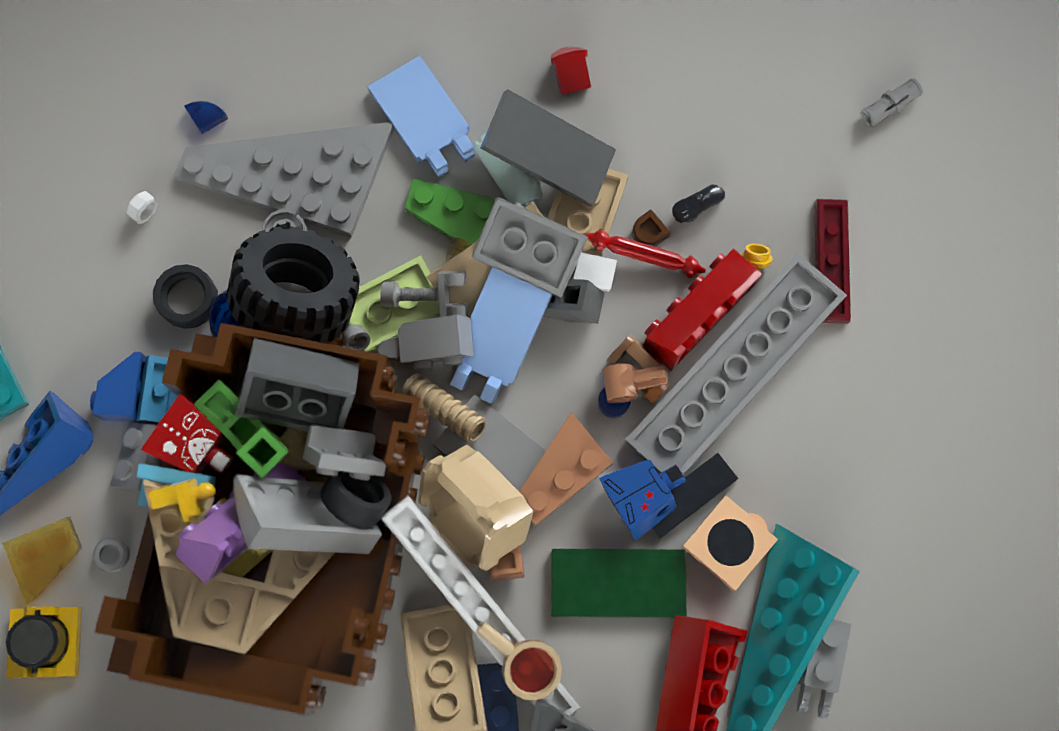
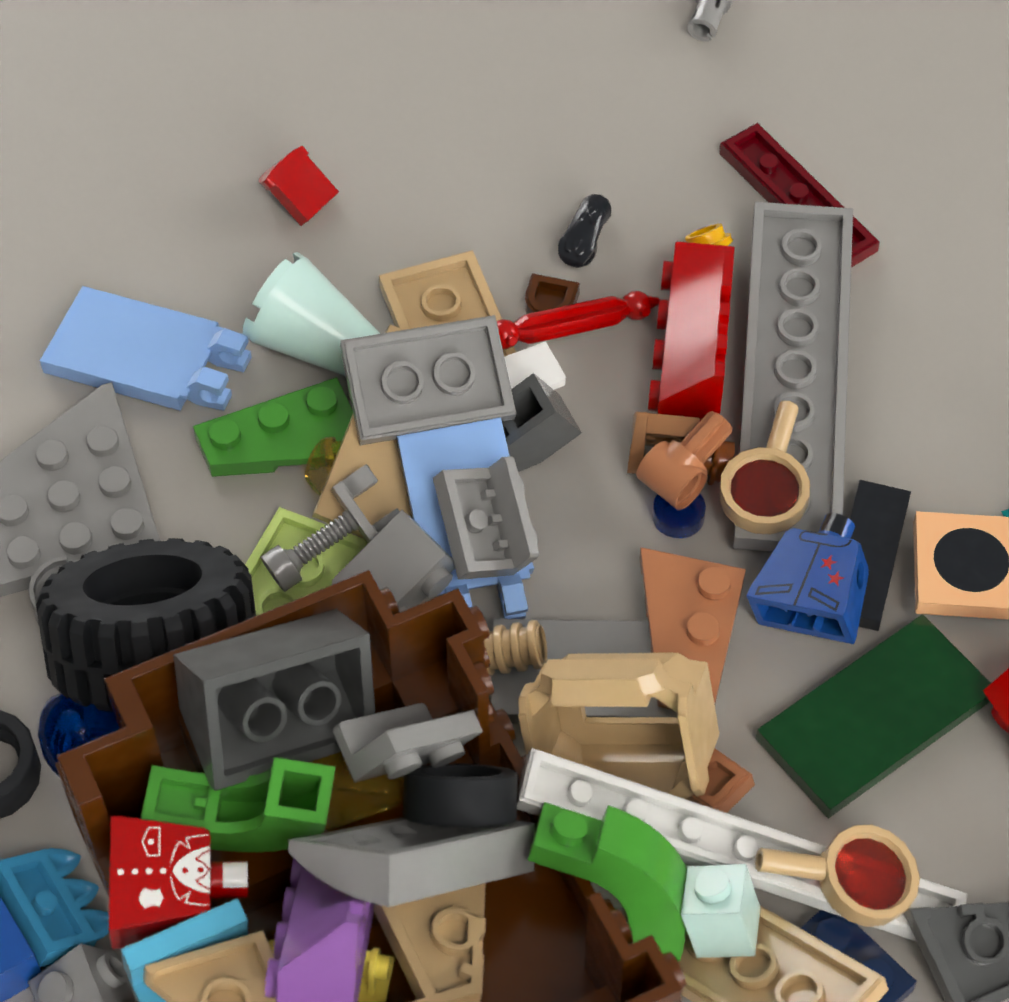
camera: 35 degrees left, 20 degrees down
(185, 493) = (224, 932): yellow piece -> none
(409, 583) = (625, 860): none -> bright green arch
(444, 635) = (721, 911): none -> light aqua brick
(499, 346) = (486, 520): none -> light grey bracket
(548, 148) = (352, 264): dark grey tile -> none
(662, 424) = (766, 486): none -> piece

